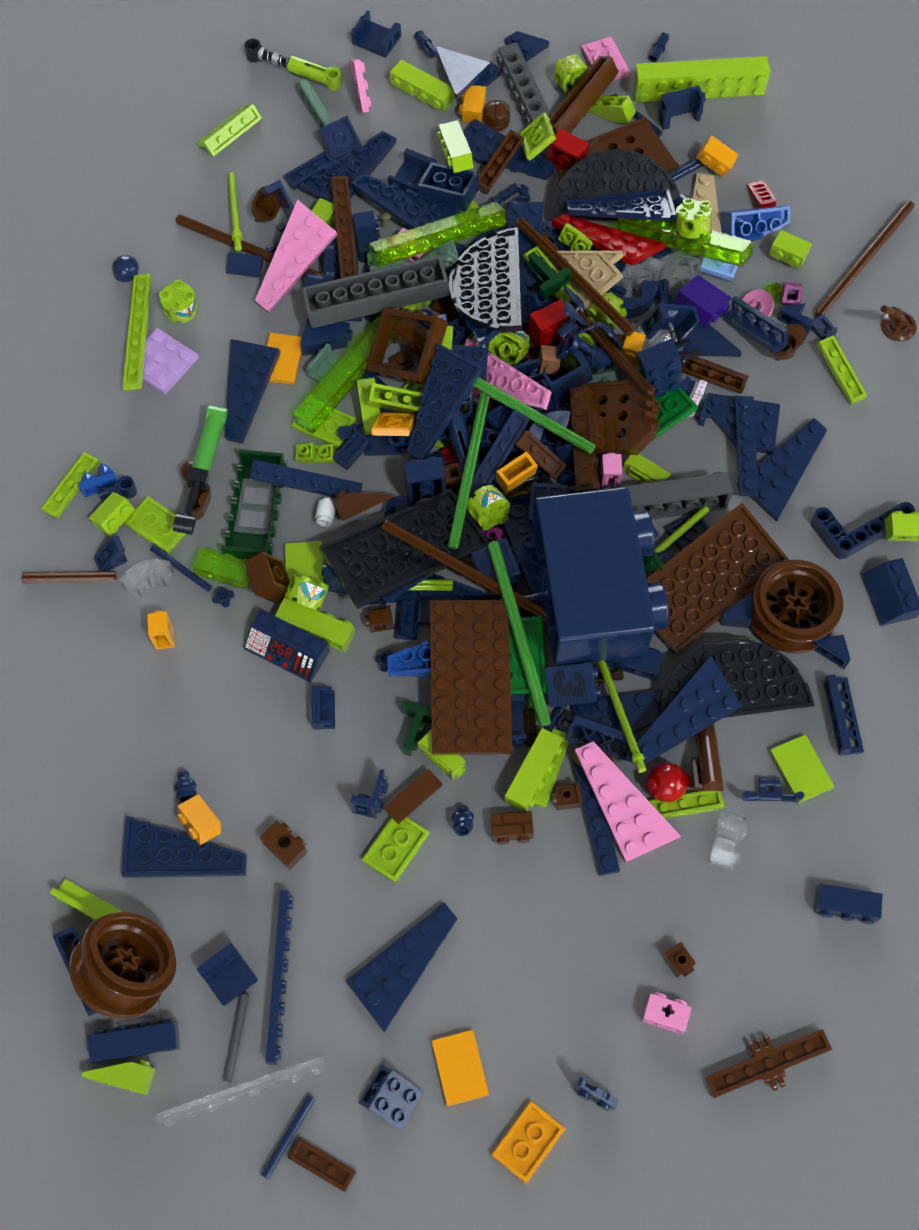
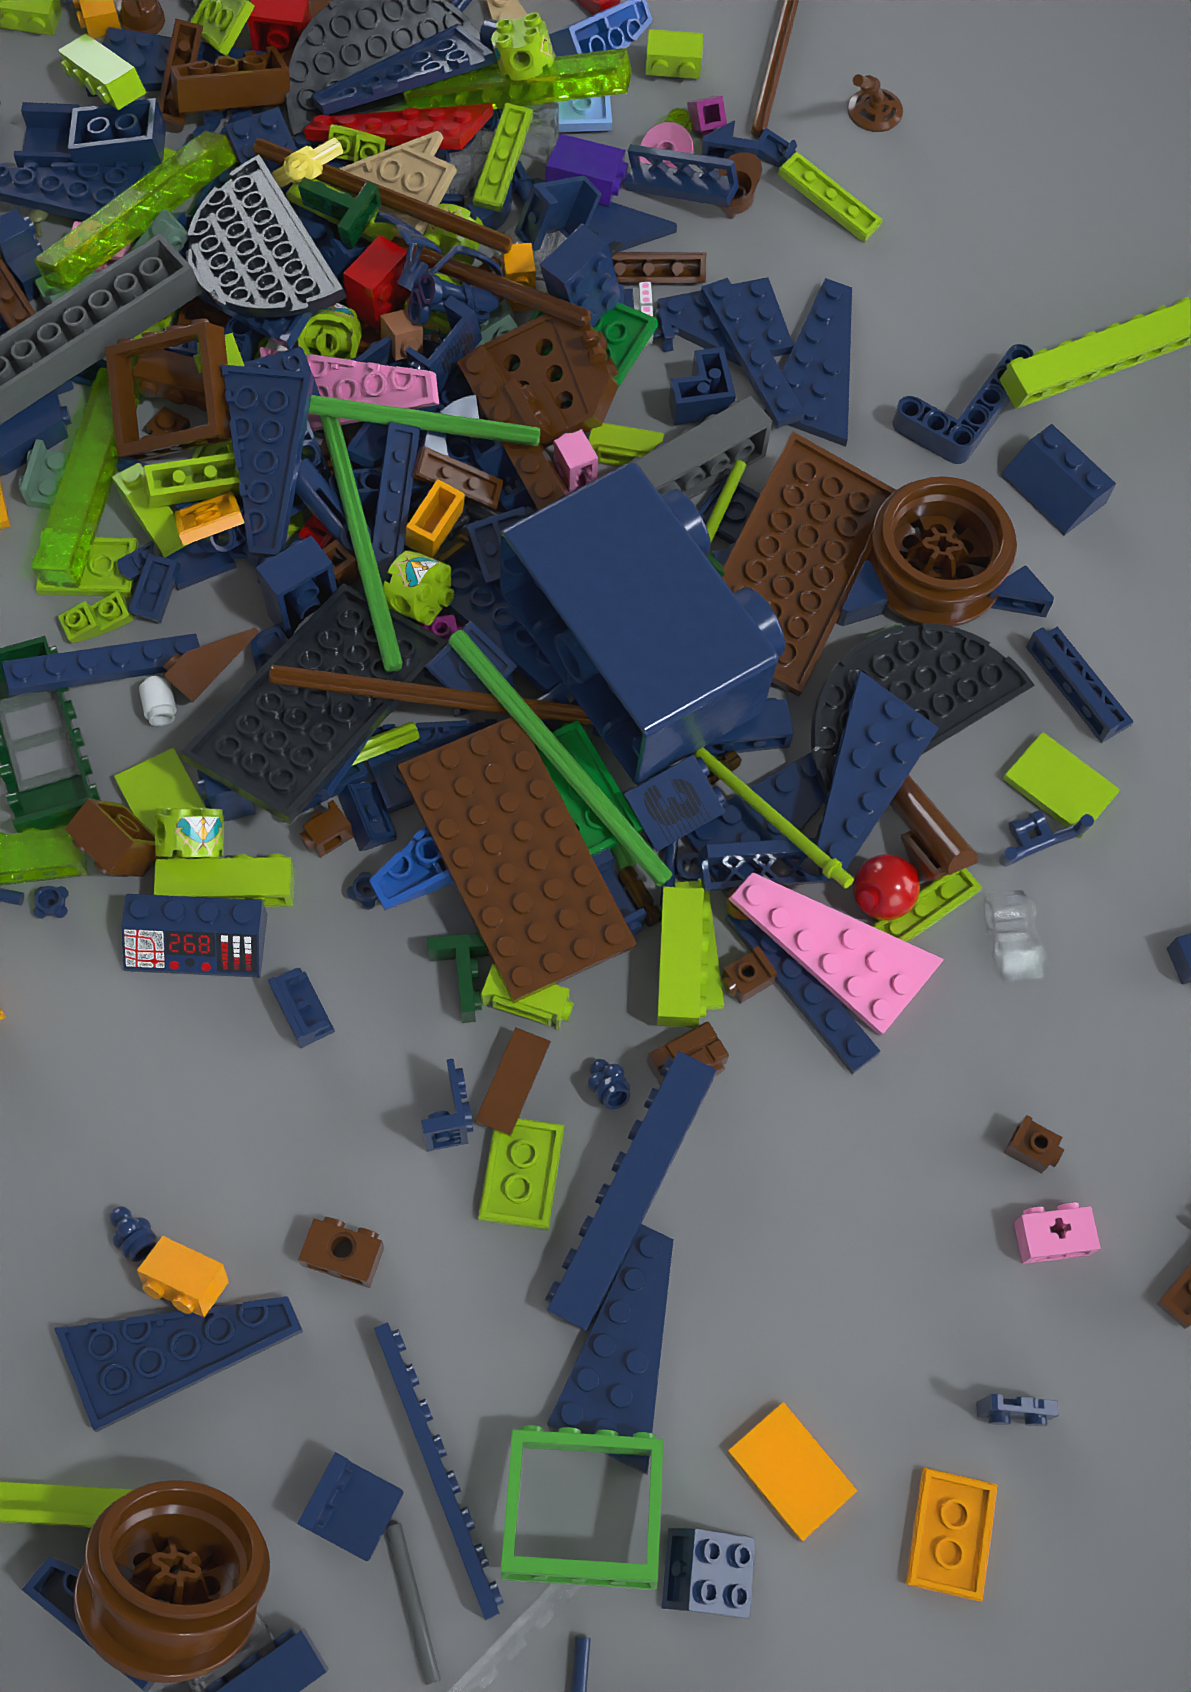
camera: 30 degrees left, 0 degrees up
(322, 1061) = (582, 1571): none -> bright green window
(446, 881) = (631, 1191): none -> dark blue brick
(525, 177) = (231, 82): none -> reddish brown wedge
(539, 242) = (307, 162): none -> light yellow bush
(656, 277) = (503, 157): none -> lime tile
(708, 459) = (706, 391): none -> dark blue brick

